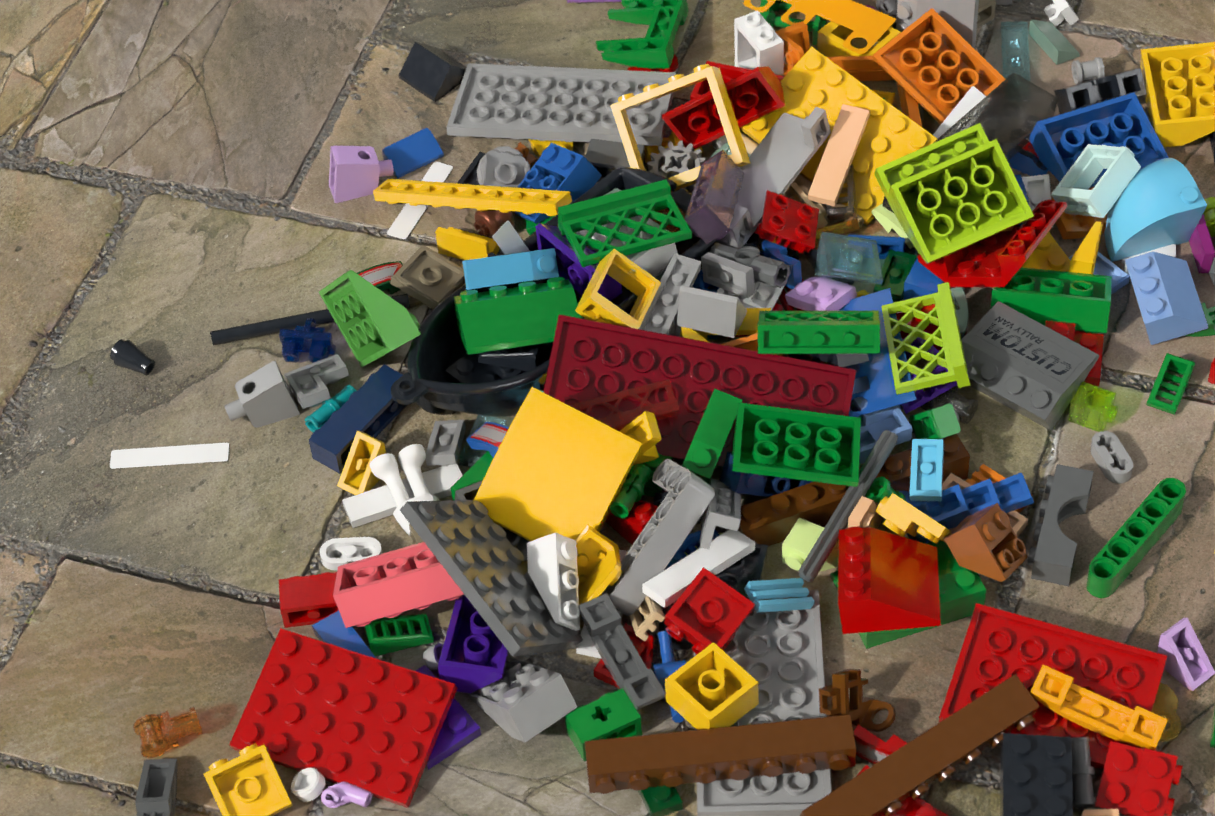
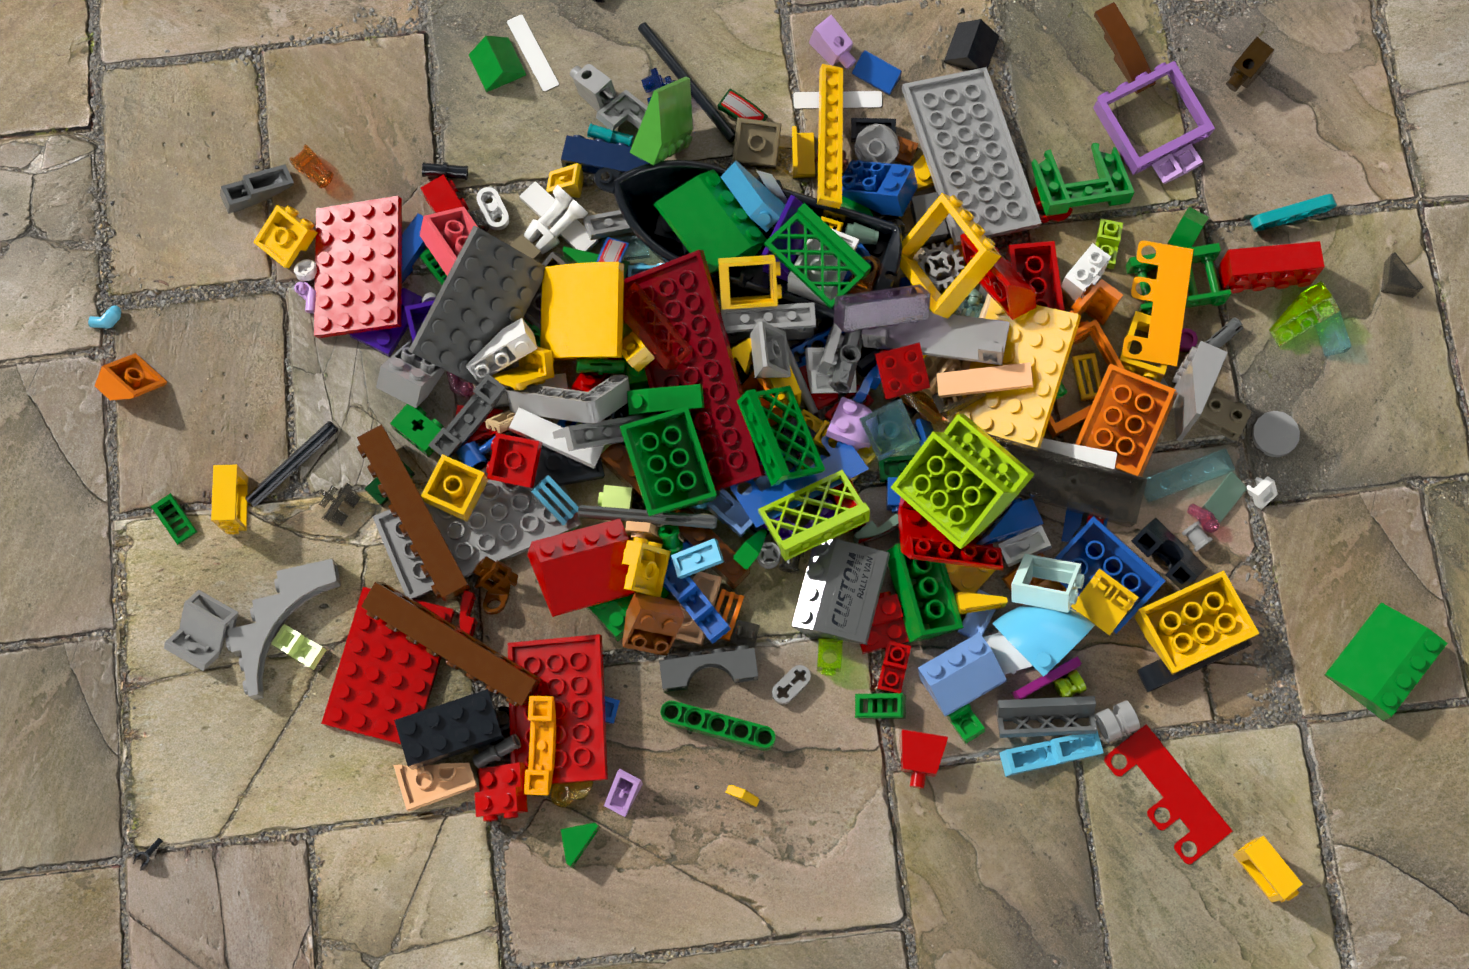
camera: 65 degrees right, 25 degrees up
(159, 494) = (496, 62): none -> green slope
(268, 587) = (449, 171): none -> black pin
(568, 665) = (459, 387): none -> clear pink arm
(718, 36) = (1109, 238): none -> lime slope
(1034, 477) = (745, 634): none -> clear smoke tile
(1067, 58) = (1205, 517): none -> clear pink arm
(1126, 356) = (893, 667): none -> red slope
(1138, 139) = (1104, 601): none -> yellow hinge

